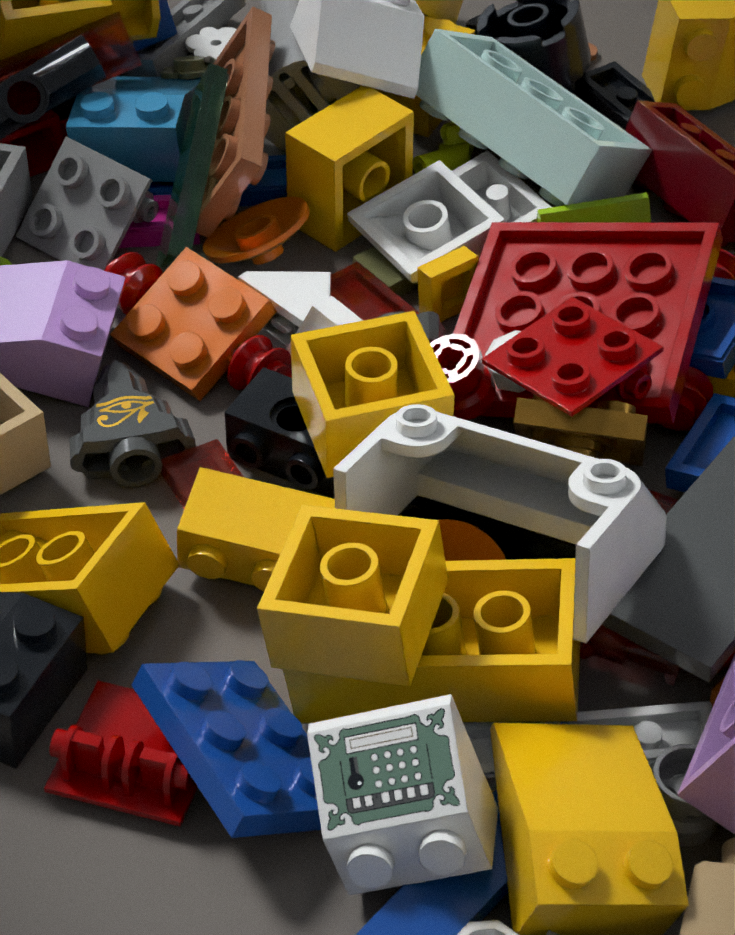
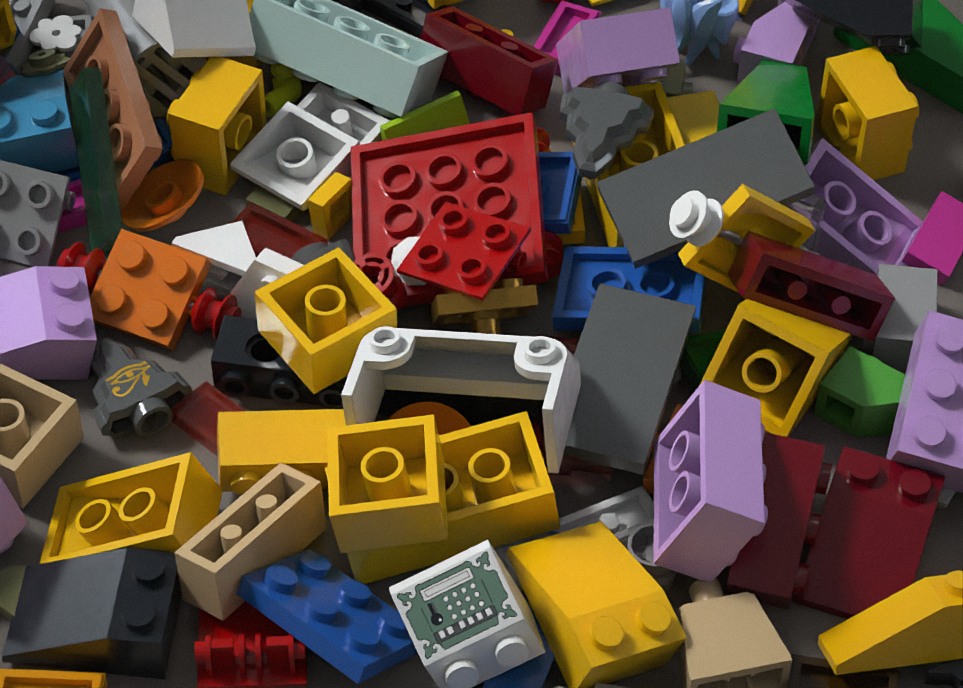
camera: 20 degrees left, 5 degrees up
(178, 617) = (258, 529): none -> tan brick

